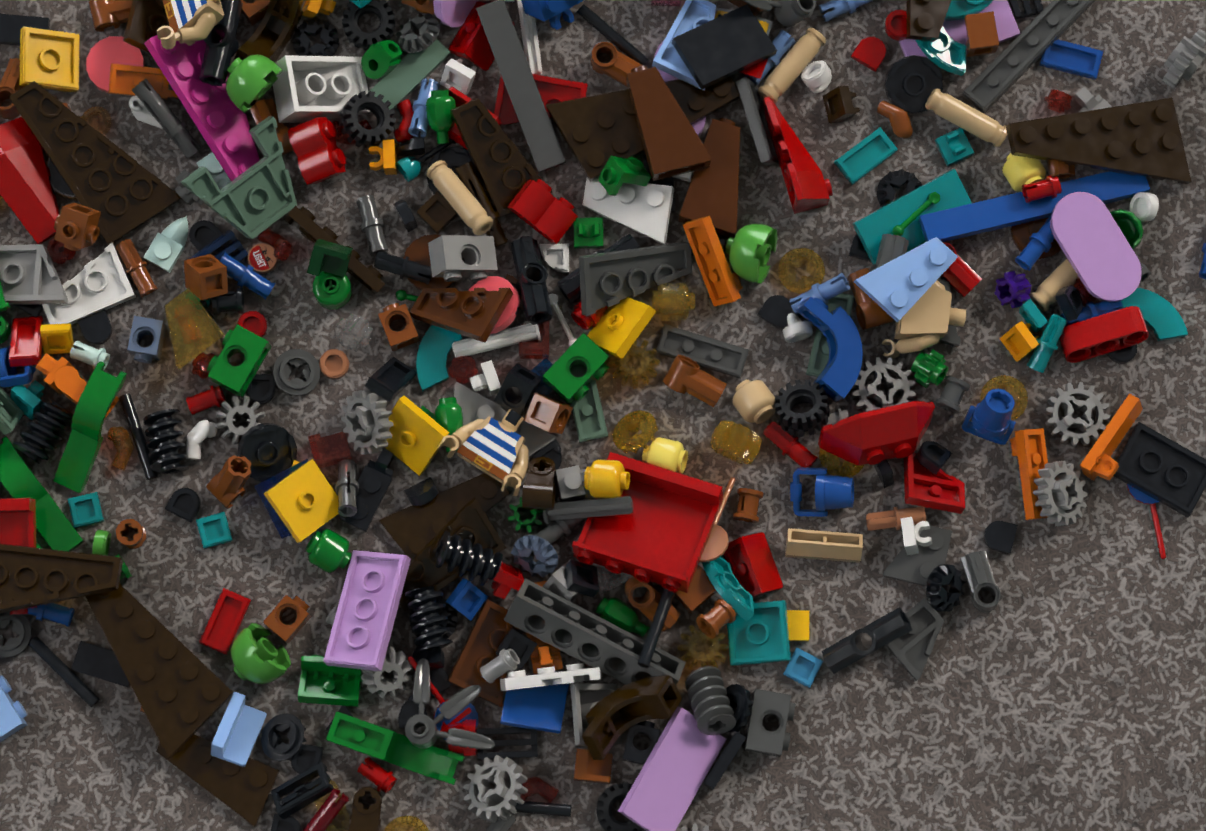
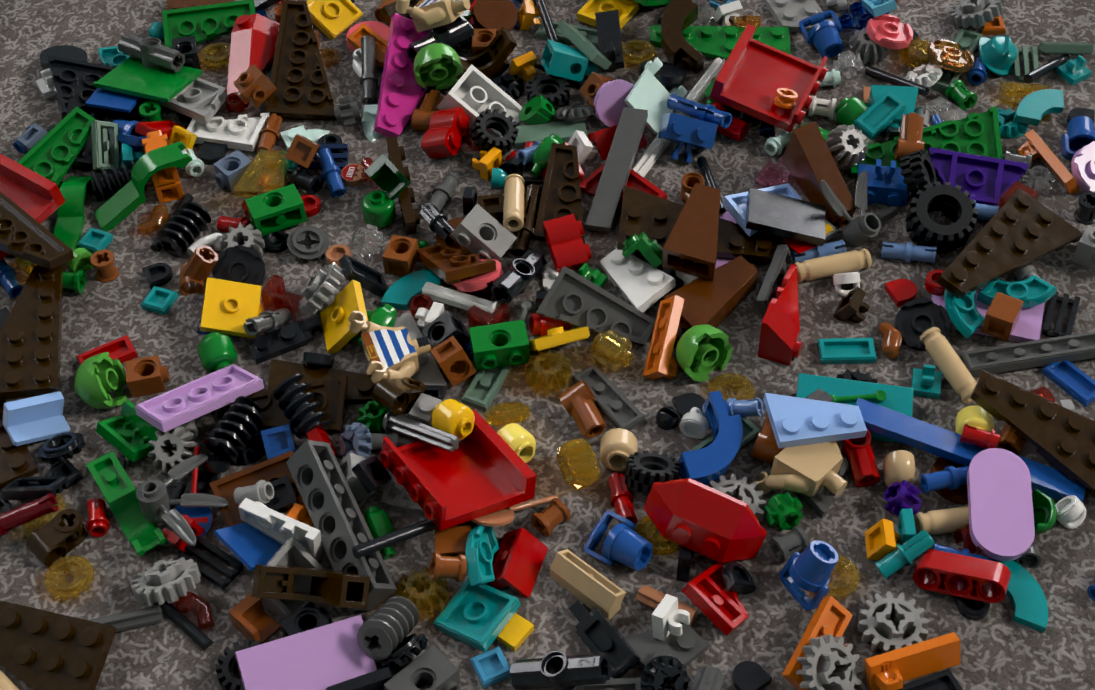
camera: 40 degrees right, 30 degrees down
(255, 196) = (371, 127): sand green wing -> none
(648, 603) = (416, 547): dark orange piece -> none
(766, 343) = (667, 418): none -> black hinge
(871, 584) = (603, 637): none -> black hinge
(993, 262) = (898, 467): none -> tan piece
(1070, 302) = (947, 530): black tile -> none

